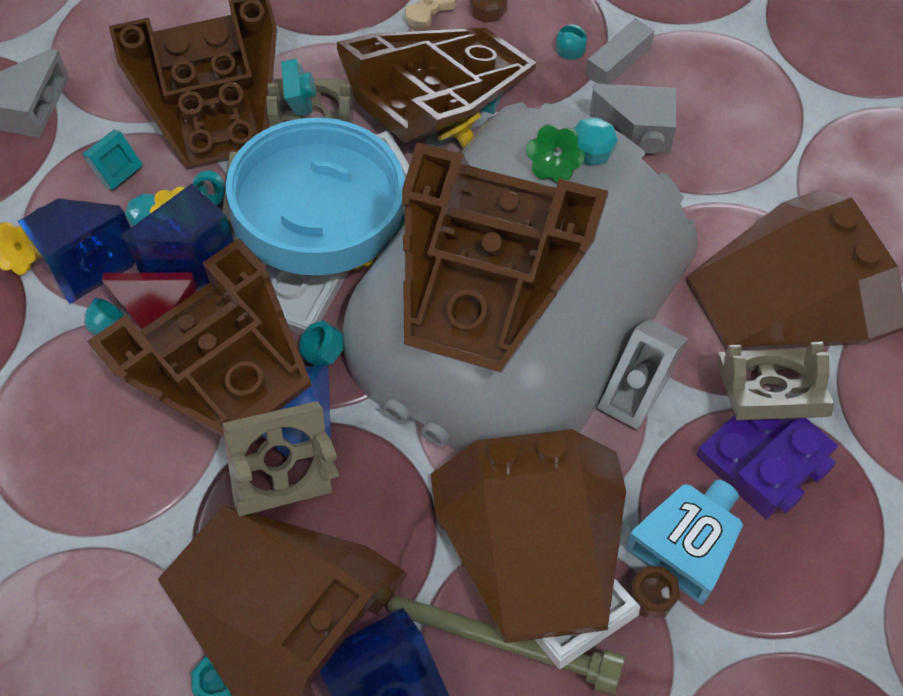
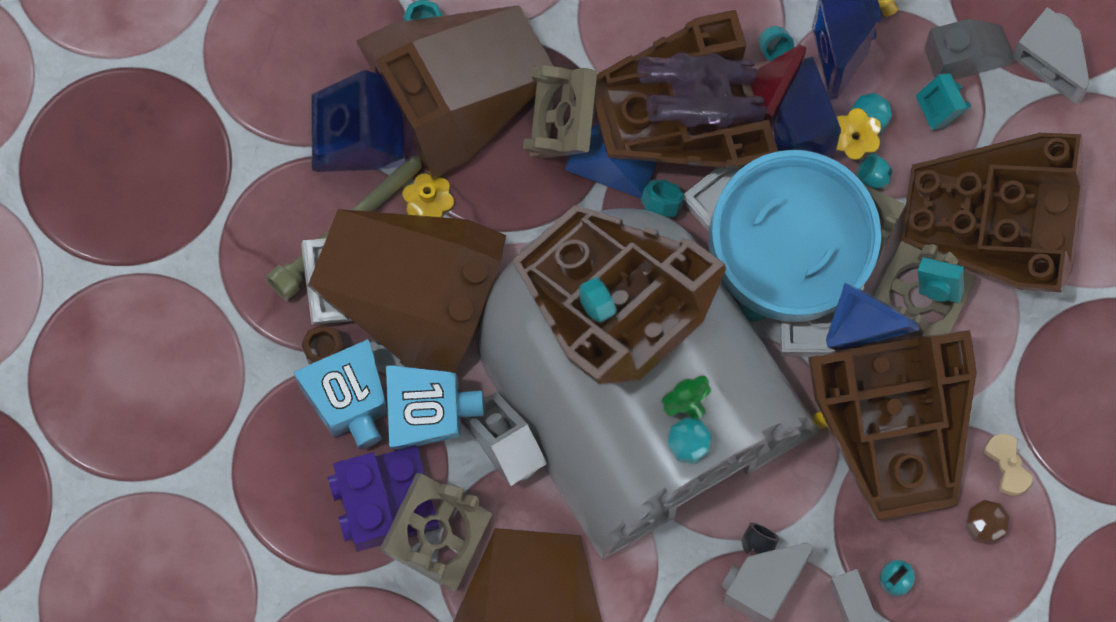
camera: 115 degrees right, 10 degrees up
(52, 164) = (967, 48): none -> dark grey slope
(198, 326) = (701, 90): none -> clear purple pin
(373, 109) = (865, 320): none -> blue slope
(429, 584) = (431, 204): none -> yellow plant
(514, 243) = (596, 300): none -> teal tile
(660, 448) = (427, 406): none -> medium azure torso

